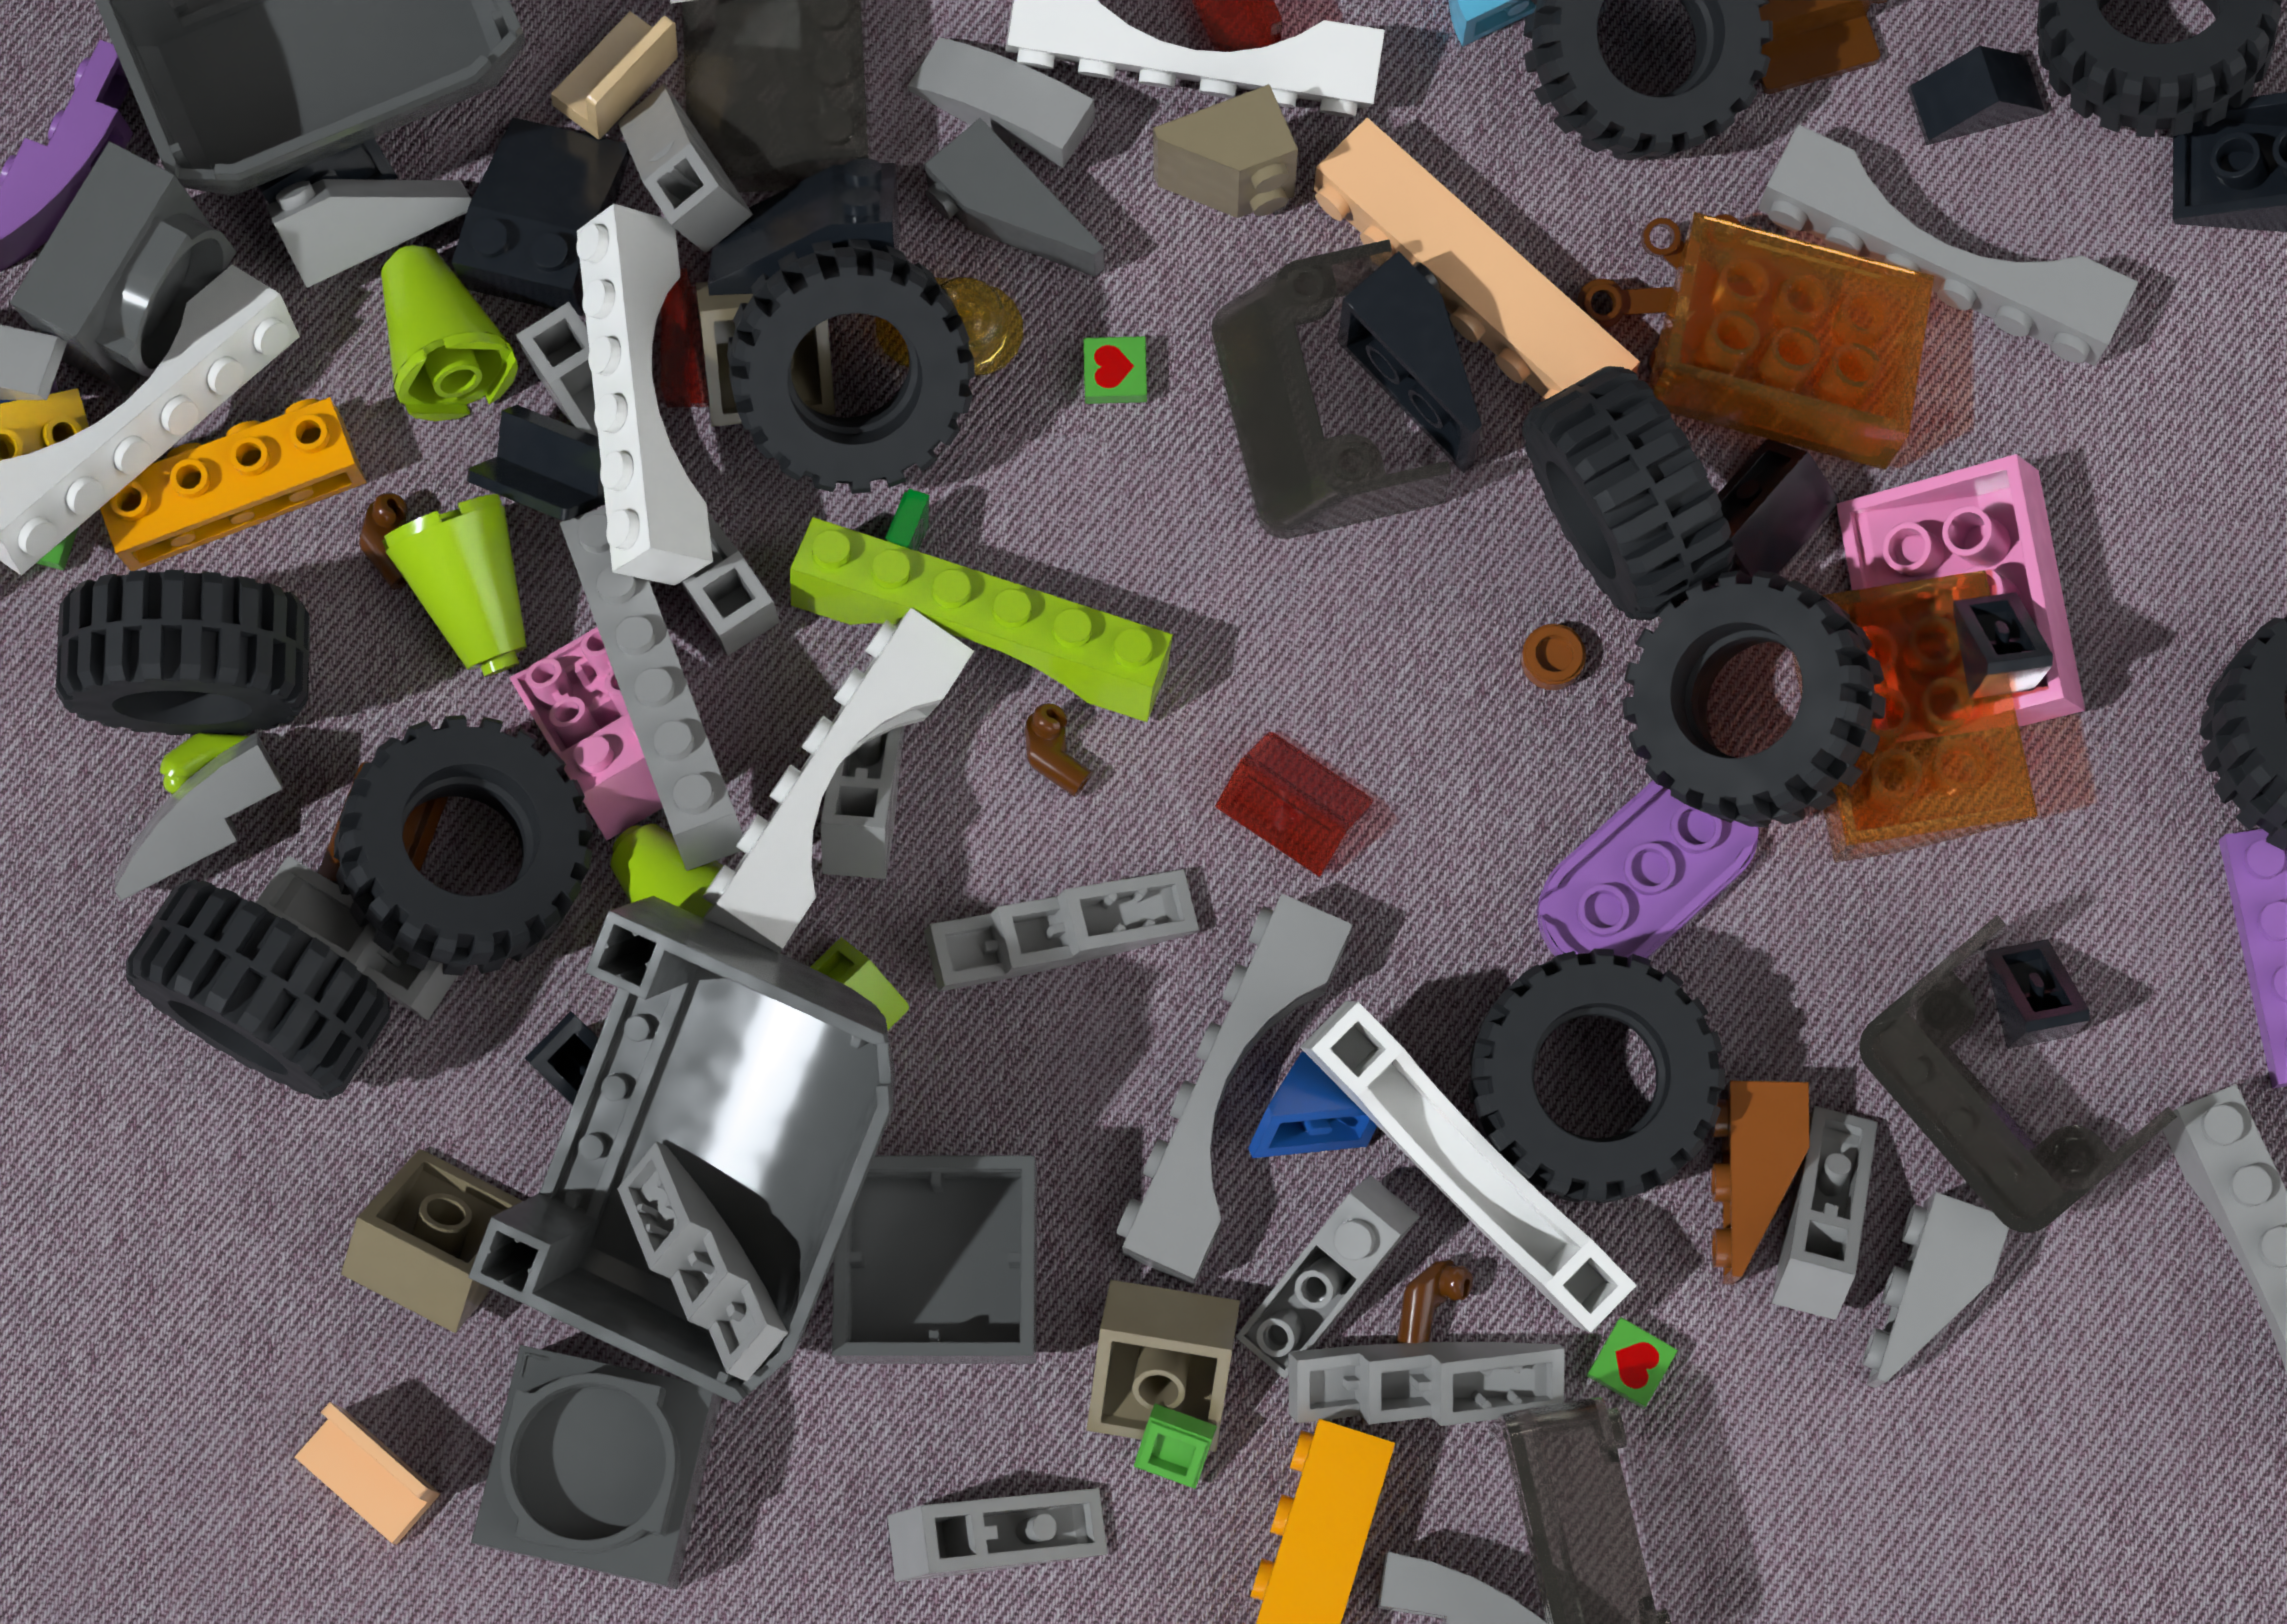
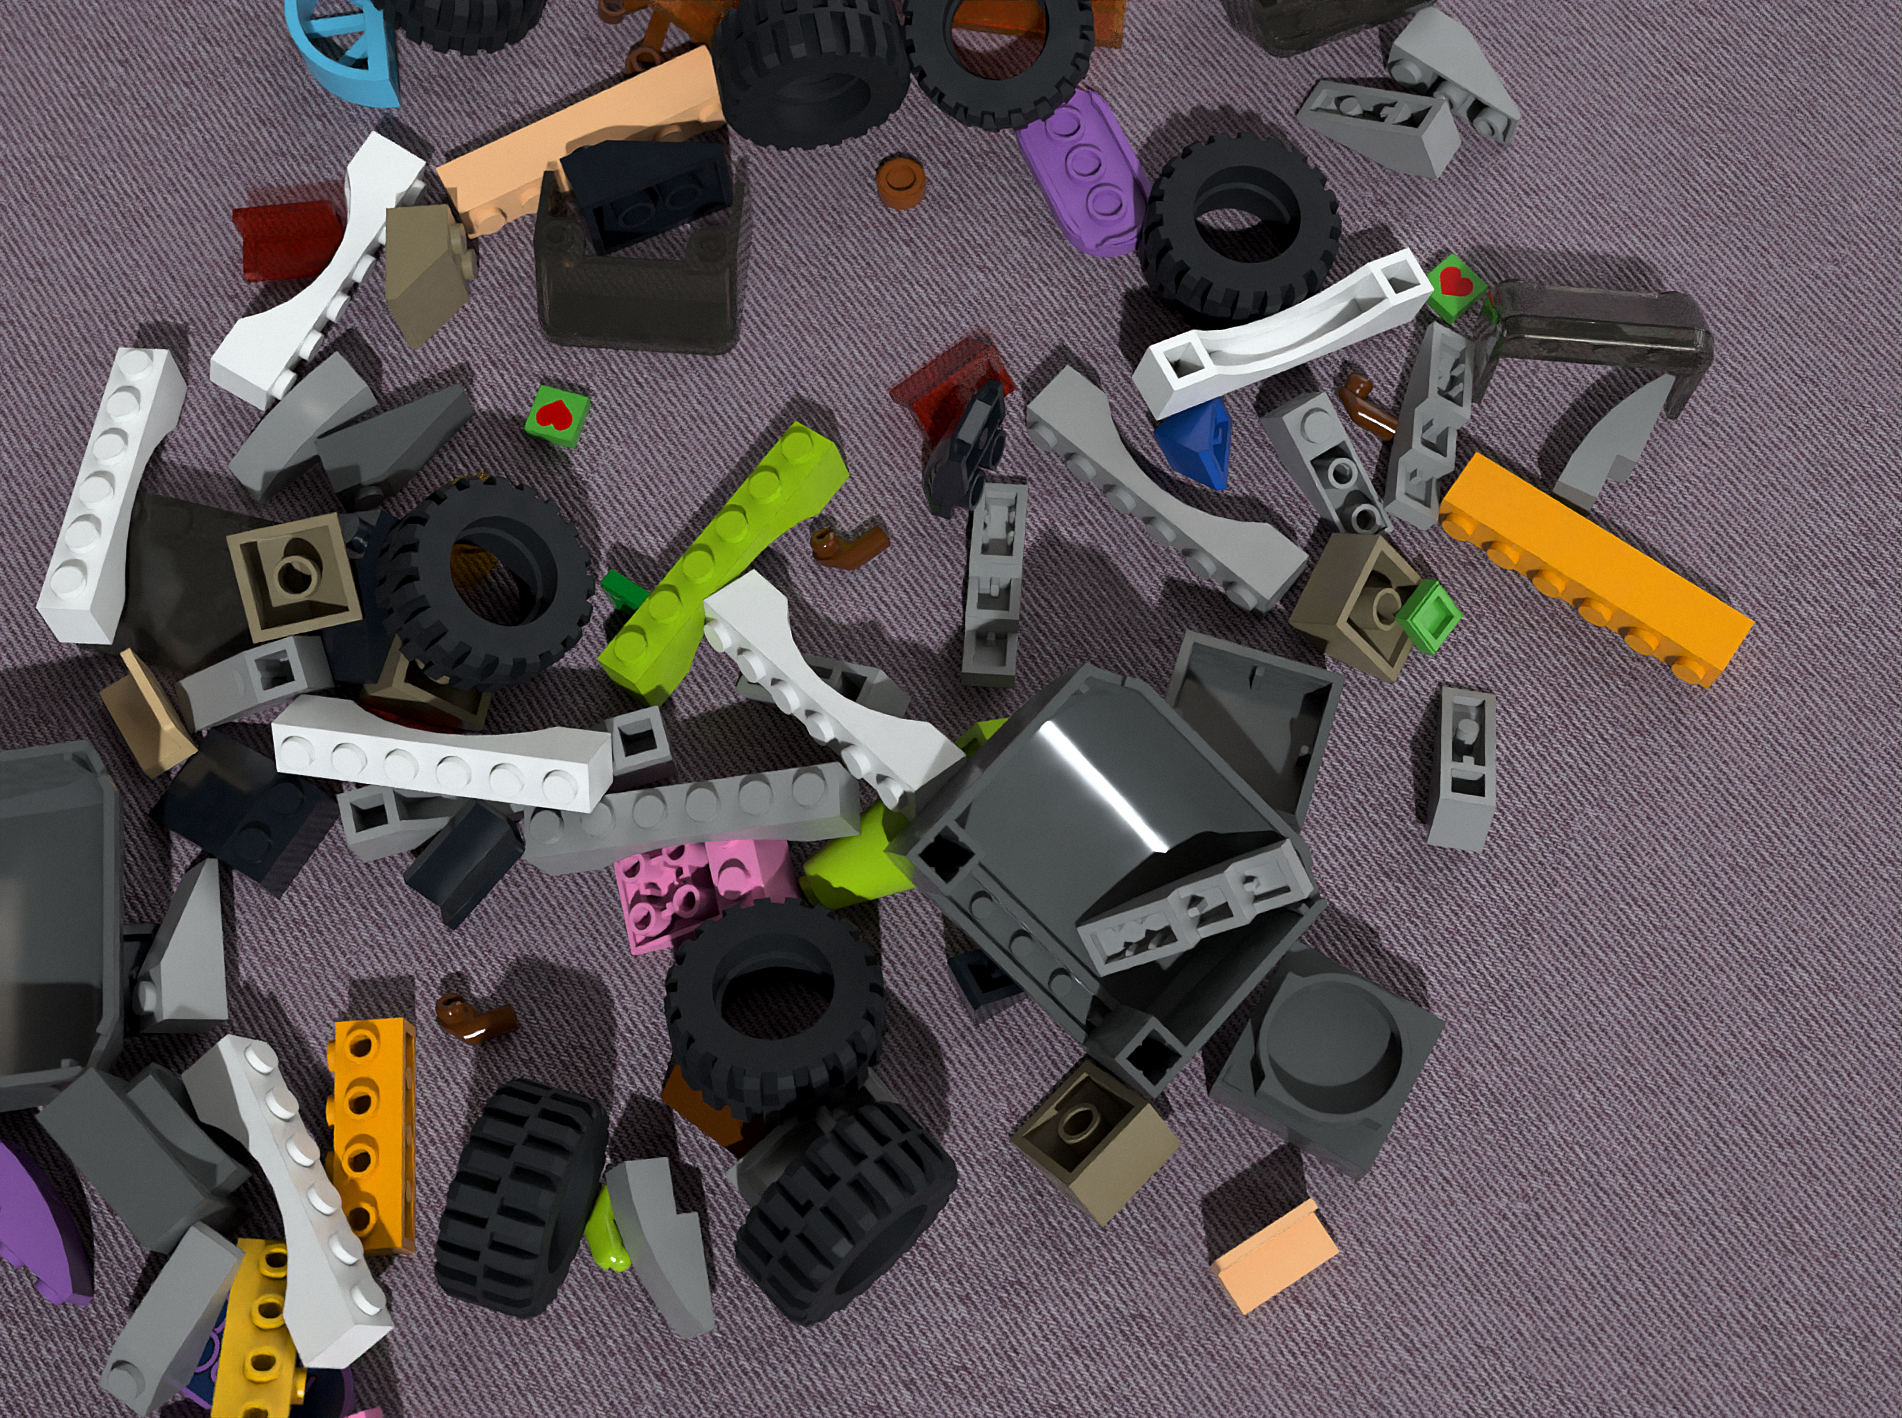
camera: 70 degrees left, 5 degrees down
(440, 339) = (317, 918): lime cone -> none
(465, 580) = (541, 956): lime cone -> none
(784, 158) = (295, 577): none -> dark tan slope
(1216, 838) = (966, 443): none -> black slope
(1762, 1148) = (1346, 158): dark orange slope -> none

